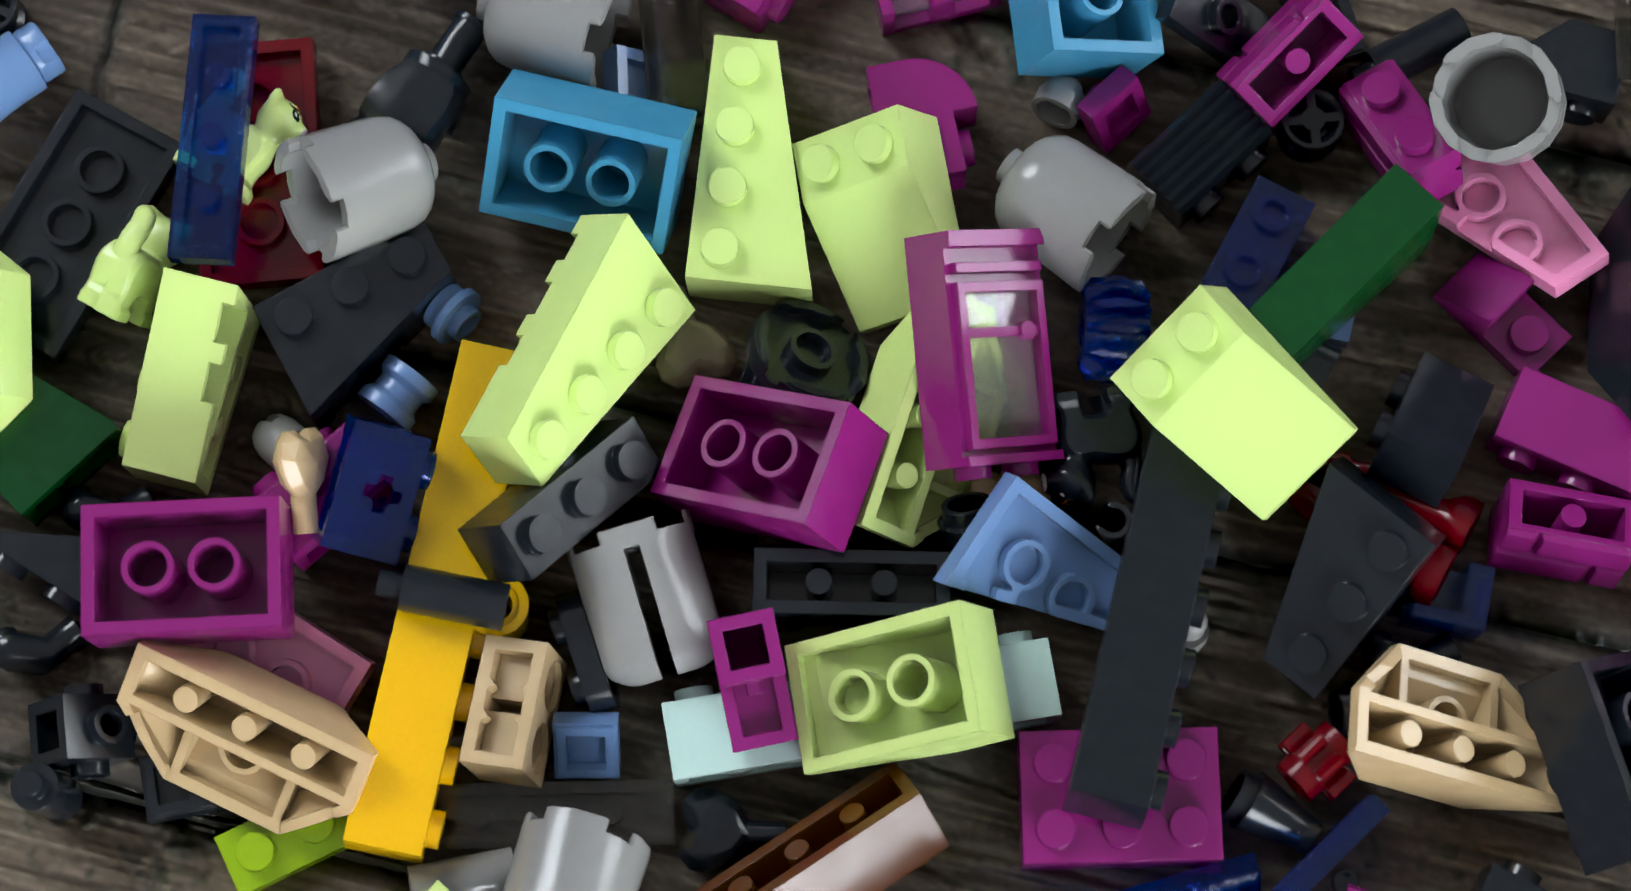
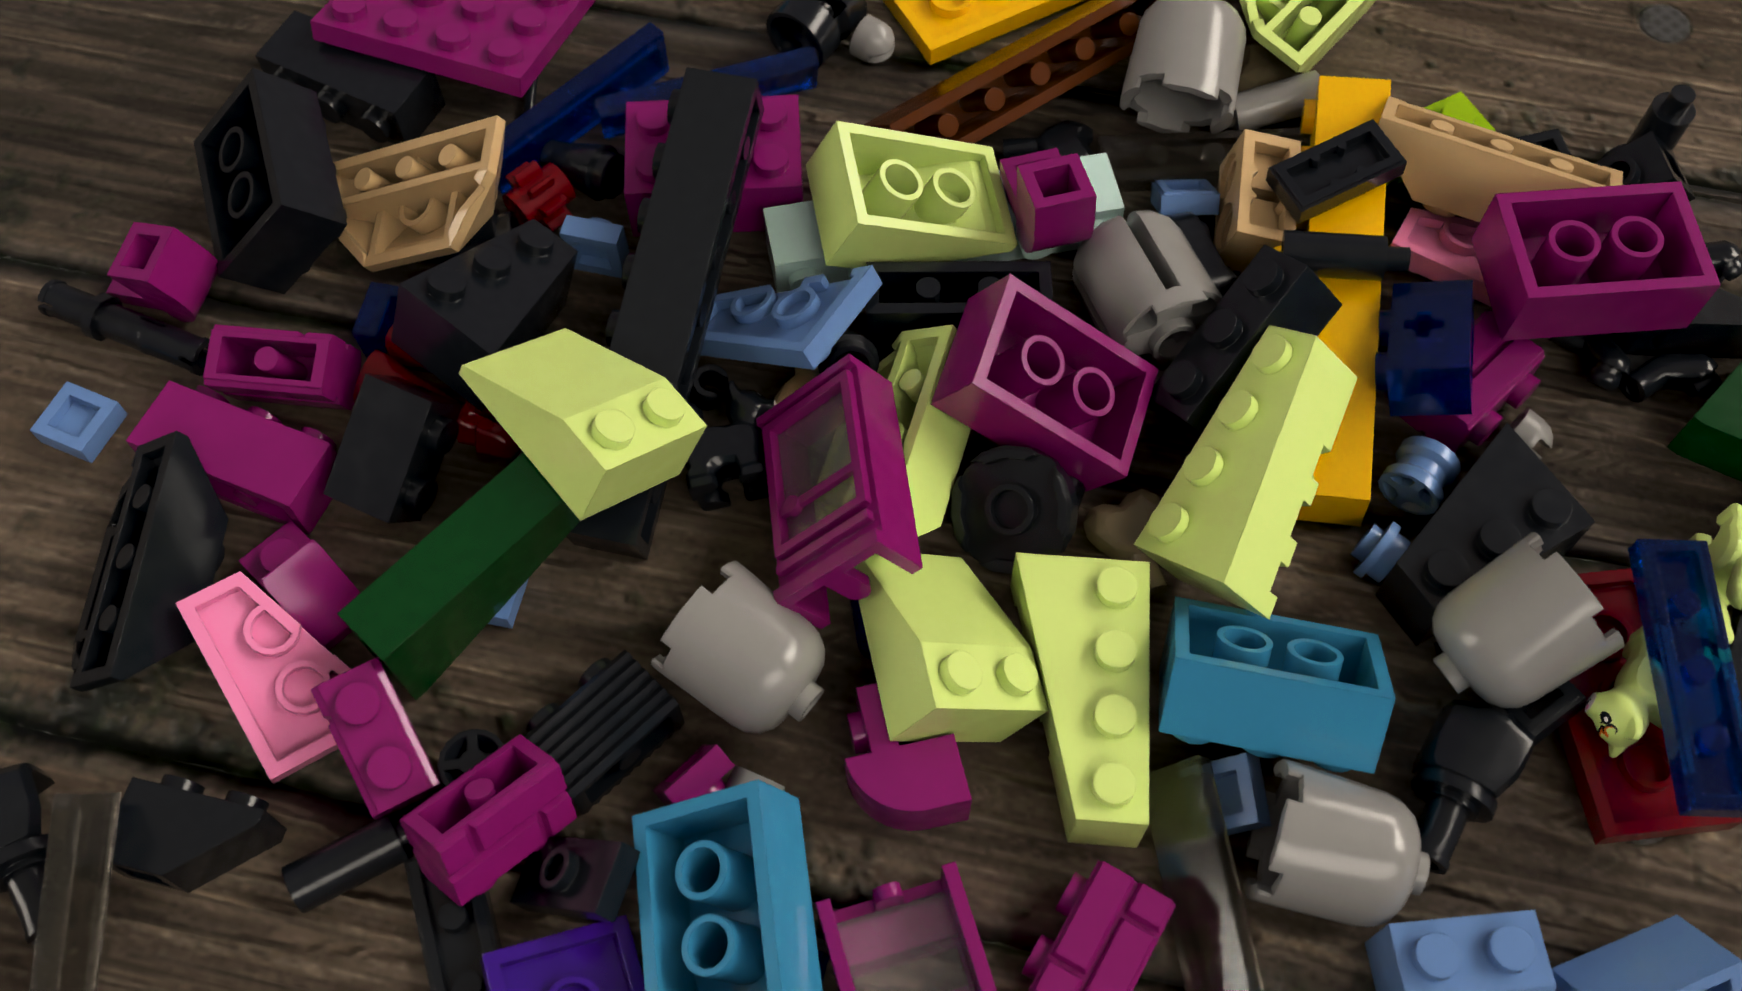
camera: 175 degrees right, 15 degrees down
(188, 381) = (1633, 468): yellowish green wedge -> none
(301, 469) = (1505, 360): tan rock -> none
(432, 701) = (1335, 171): none -> black plate
(1111, 324) = (700, 536): clear blue gear -> none
(1247, 698) = (599, 244): none -> medium blue plate
(1259, 241) = (551, 624): clear blue brick -> none
(1498, 99) = (252, 727): light grey cylinder -> none

